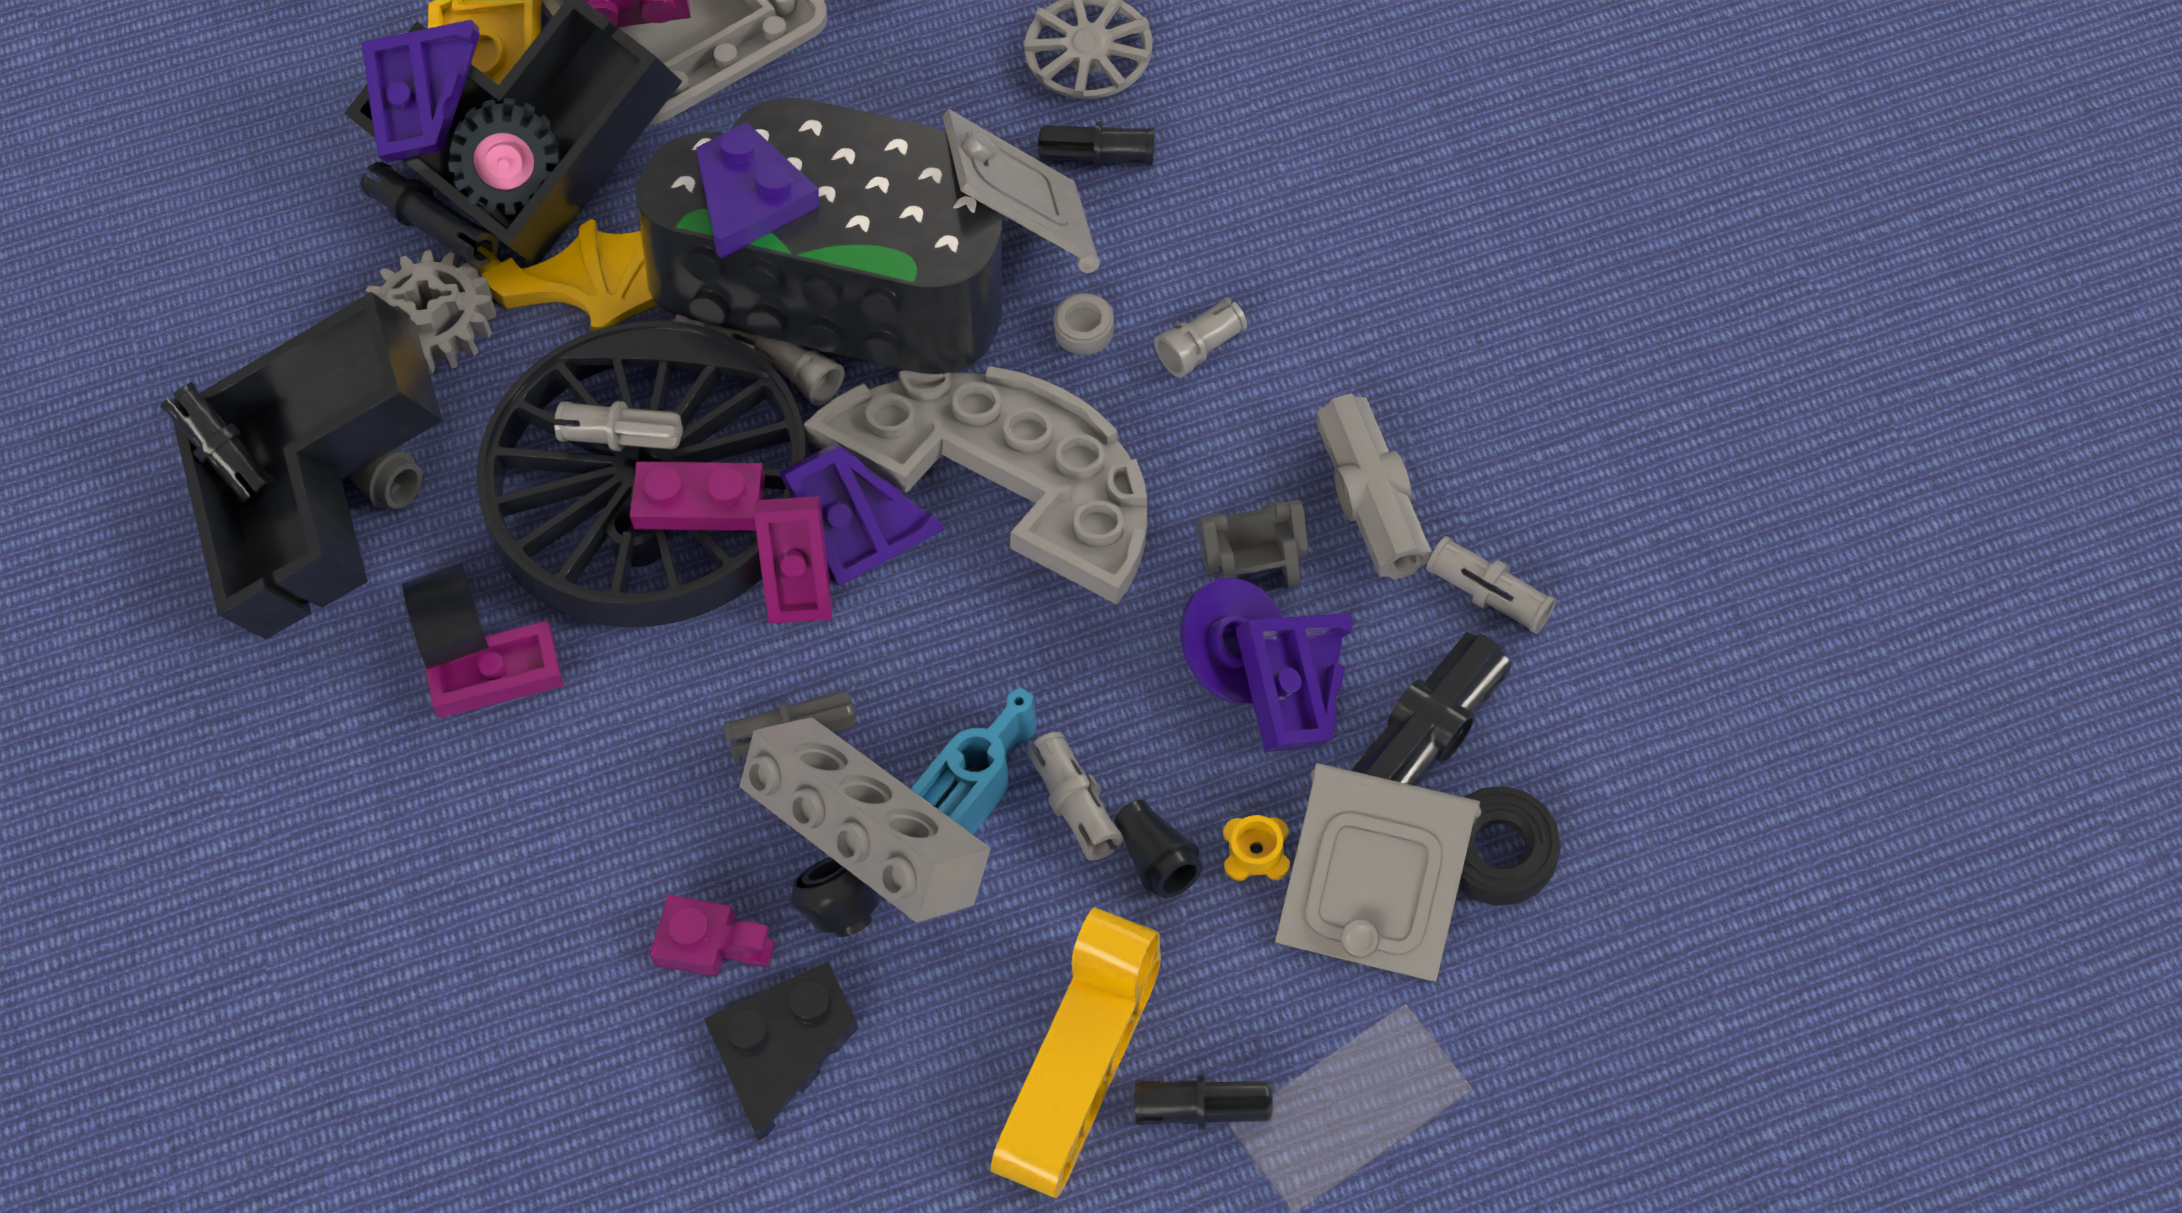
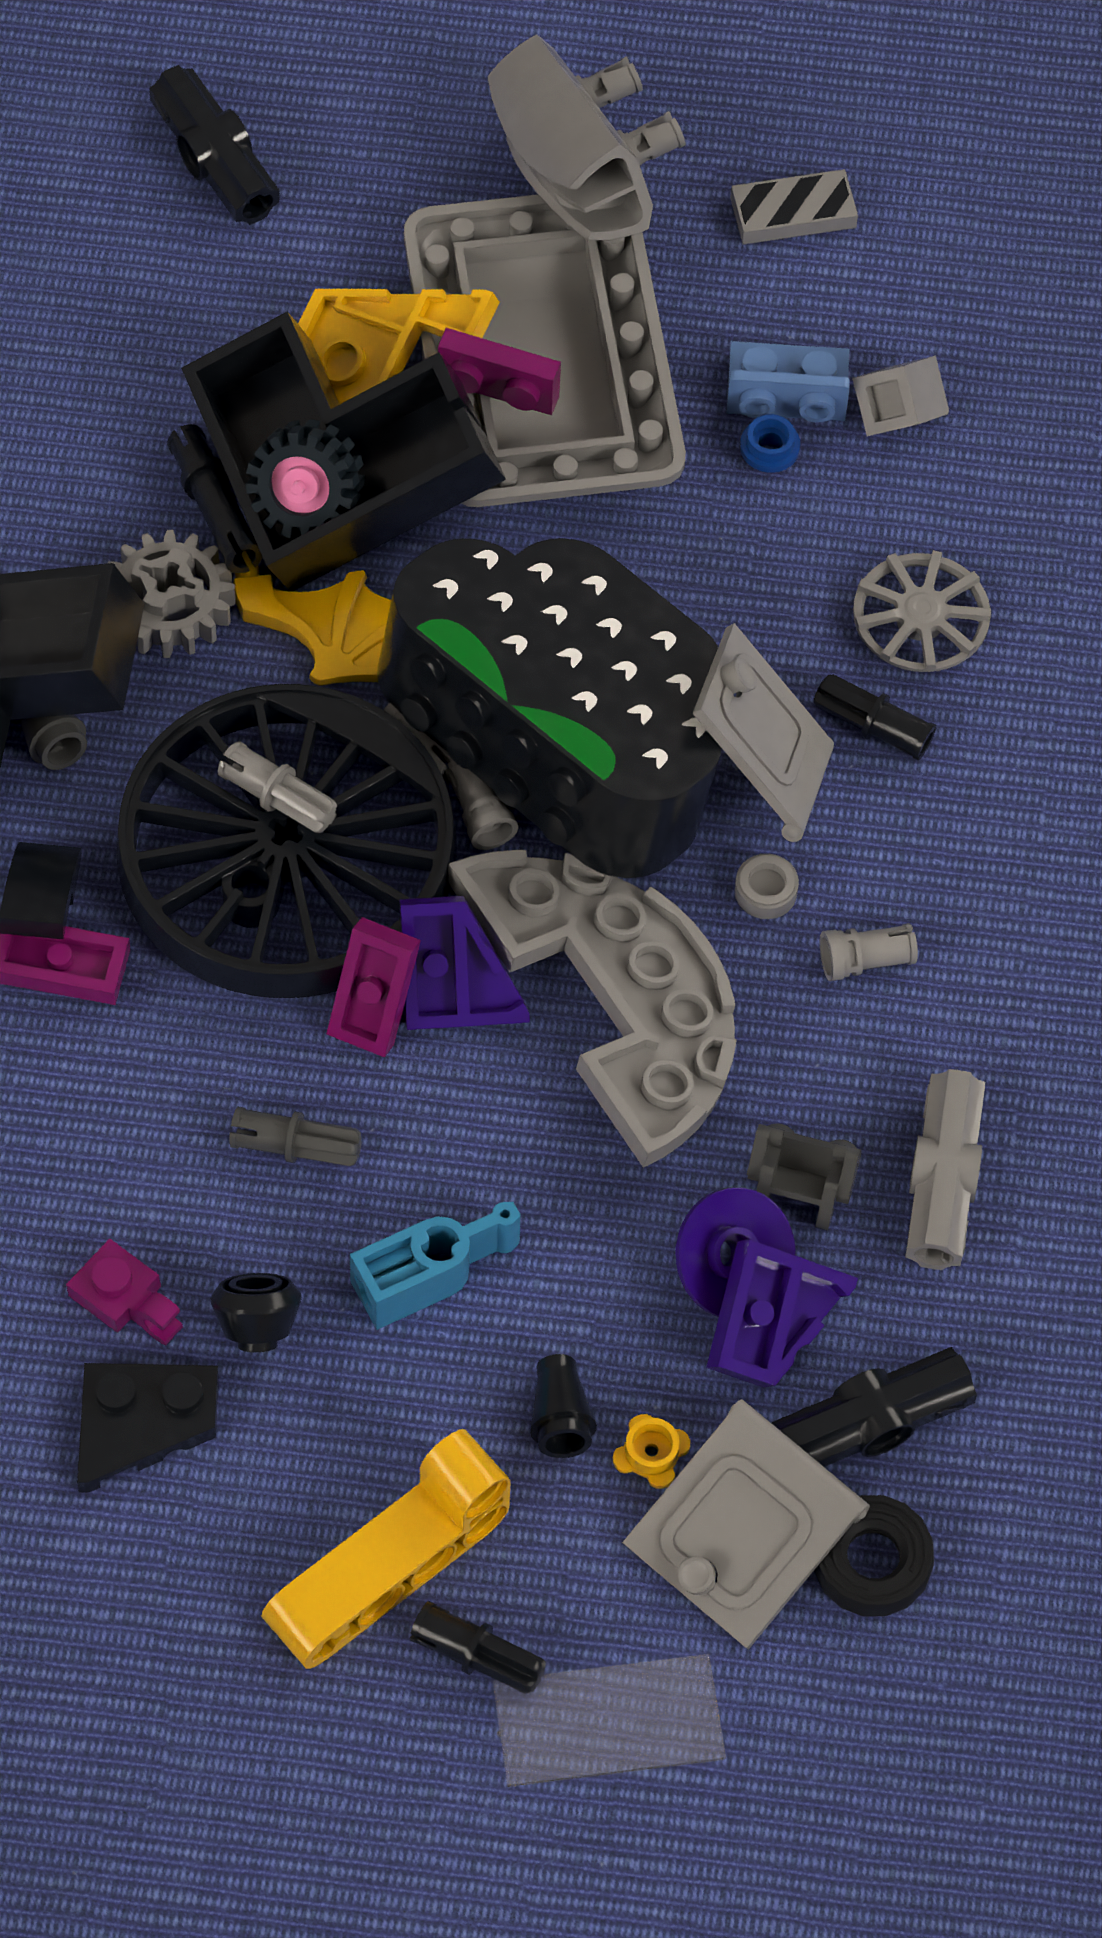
camera: 20 degrees right, 0 degrees up
(417, 86) = (255, 377): dark purple wing -> none
(696, 495) = (315, 885): magenta plate -> none
(750, 188) = (501, 620): dark purple wing -> none
(865, 819) = (309, 1253): light grey brick -> none
(1074, 796) = (513, 1324): light grey pin -> none
(1528, 604) = (1004, 1314): light grey pin -> none

